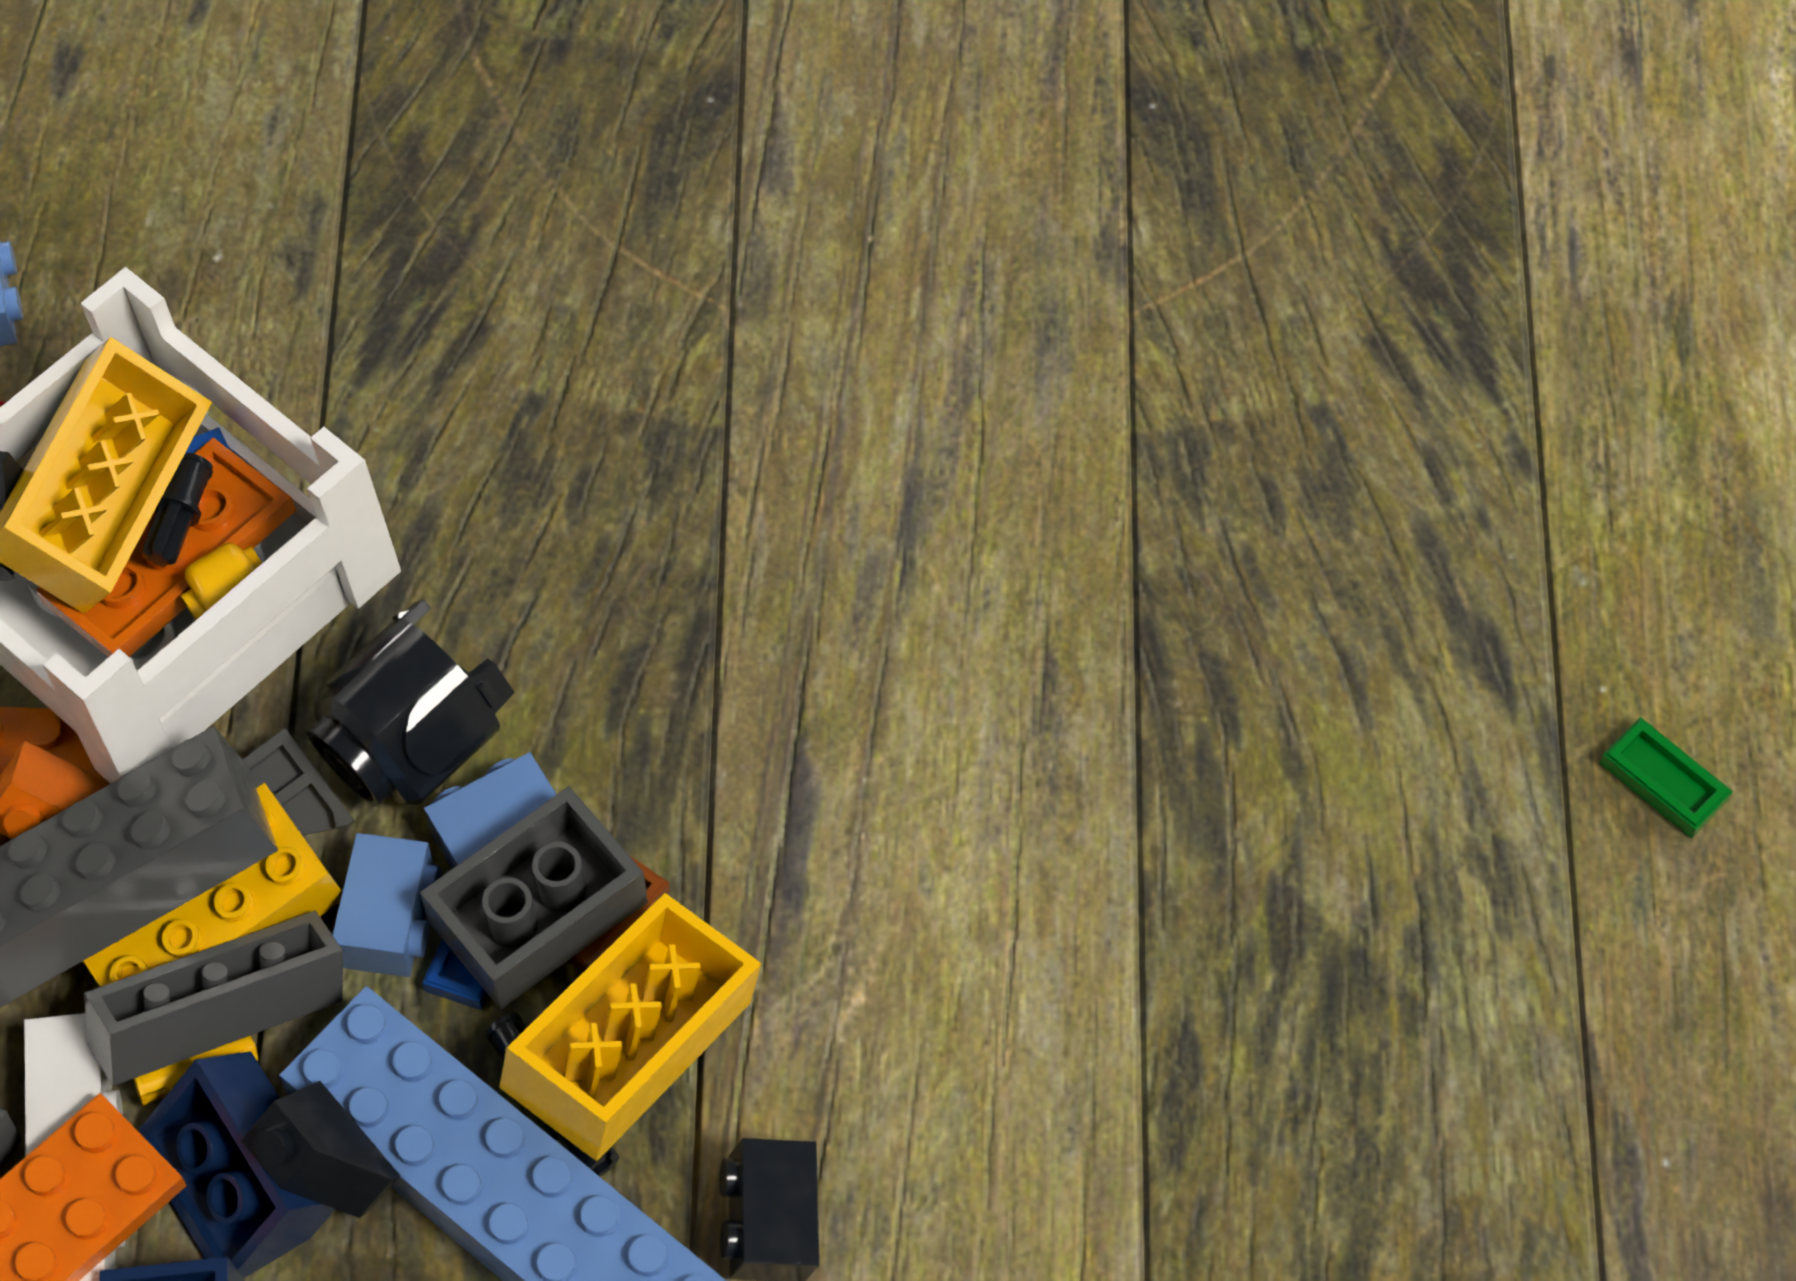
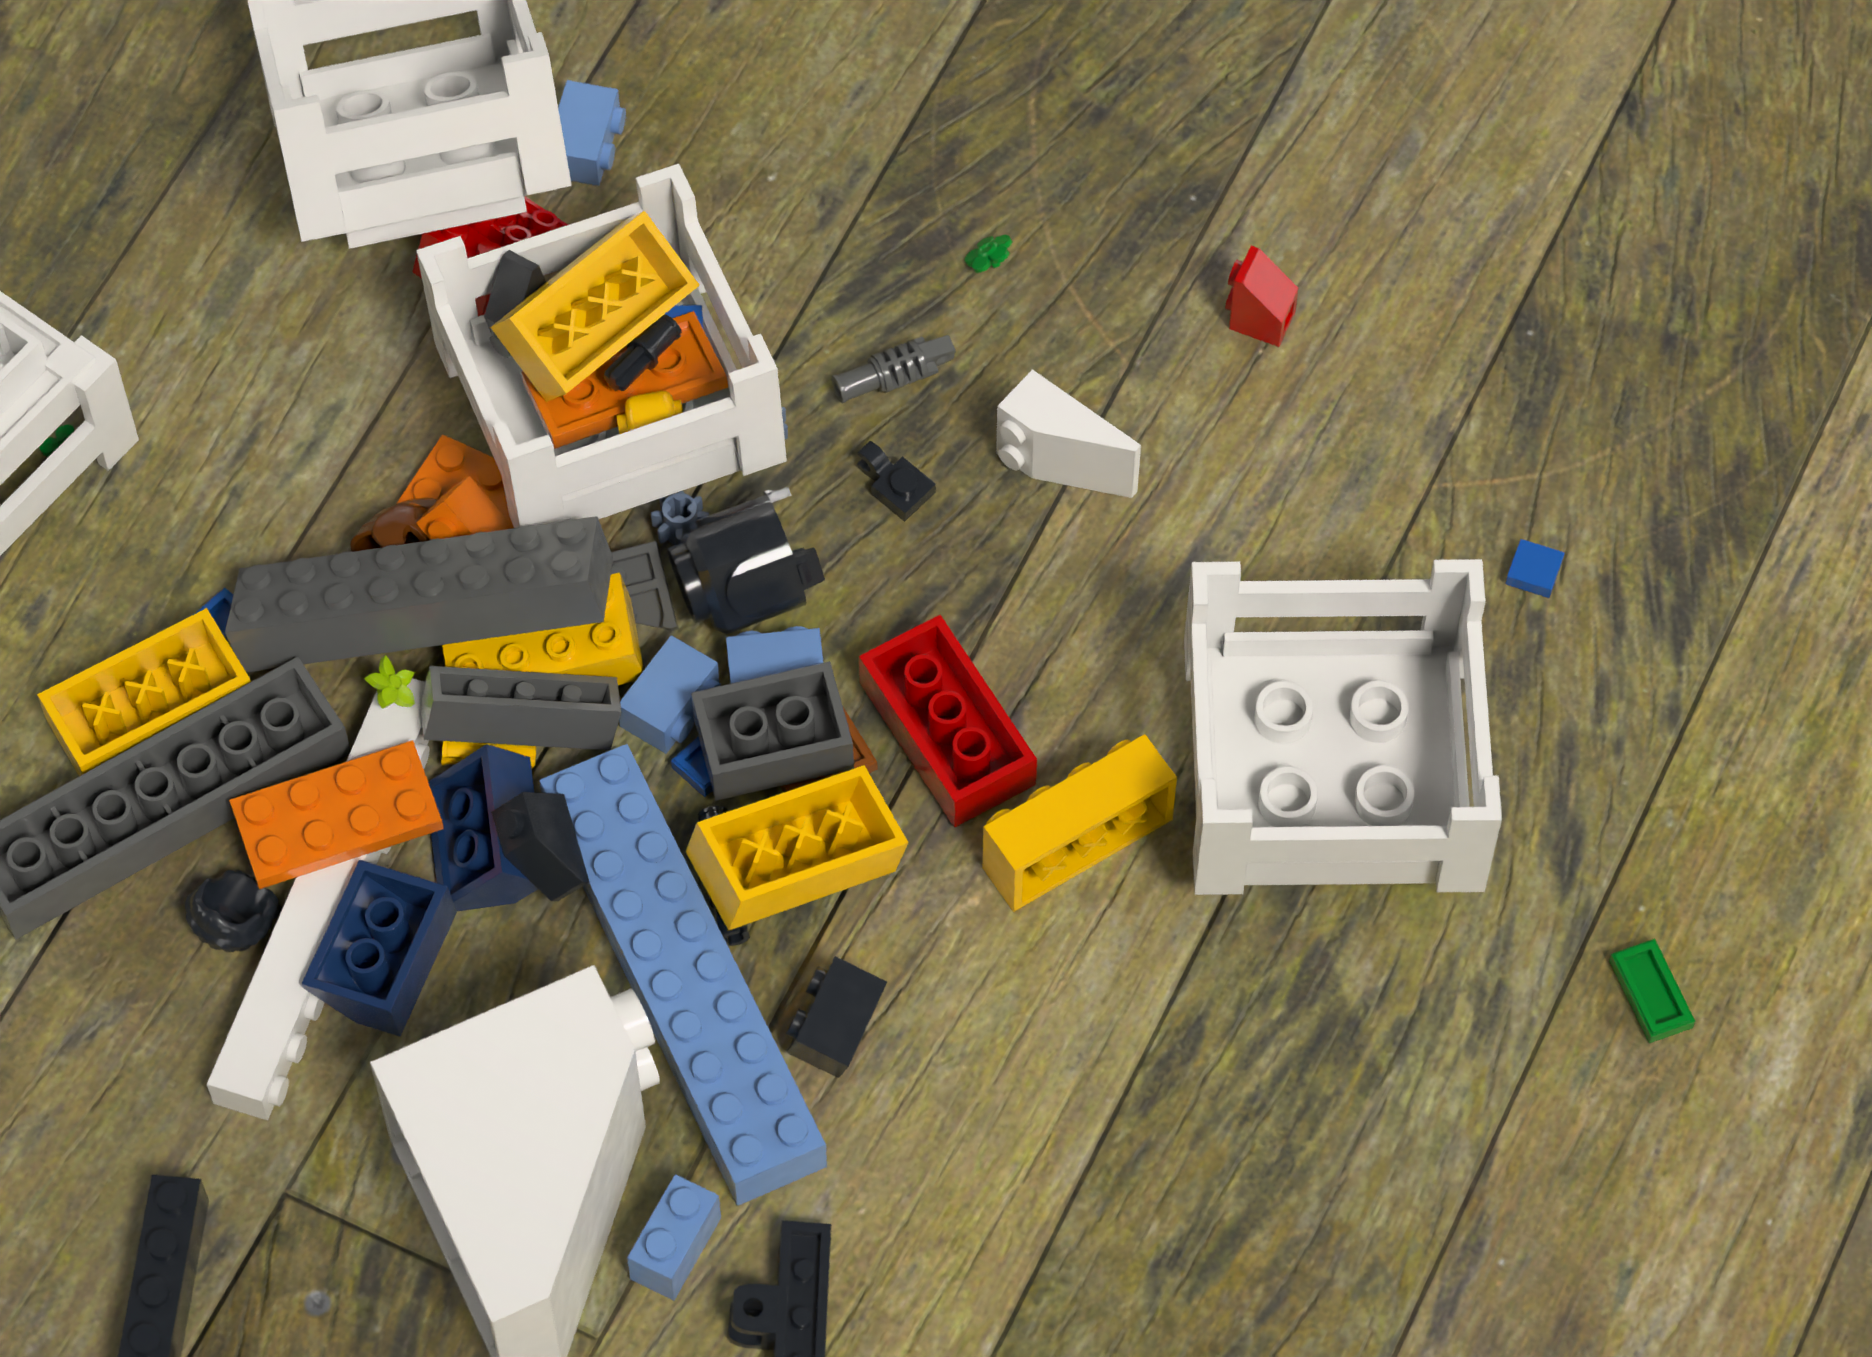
camera: 25 degrees right, 0 degrees up
(43, 1036) = (391, 686): none -> lime plant
(295, 690) = (677, 516): none -> sand blue gear
(467, 417) = (895, 368): none -> dark grey hinge
(513, 245) = (989, 253): none -> green plant
(535, 551) = (897, 486): none -> black plate
(710, 421) = (1064, 441): none -> white slope
(731, 799) = (947, 720): none -> red brick
(848, 178) = (1260, 298): none -> red slope
(942, 854) = (1078, 821): none -> yellow brick
(1207, 638) = (1340, 745): none -> white piece
(1294, 358) = (1535, 568): none -> blue tile

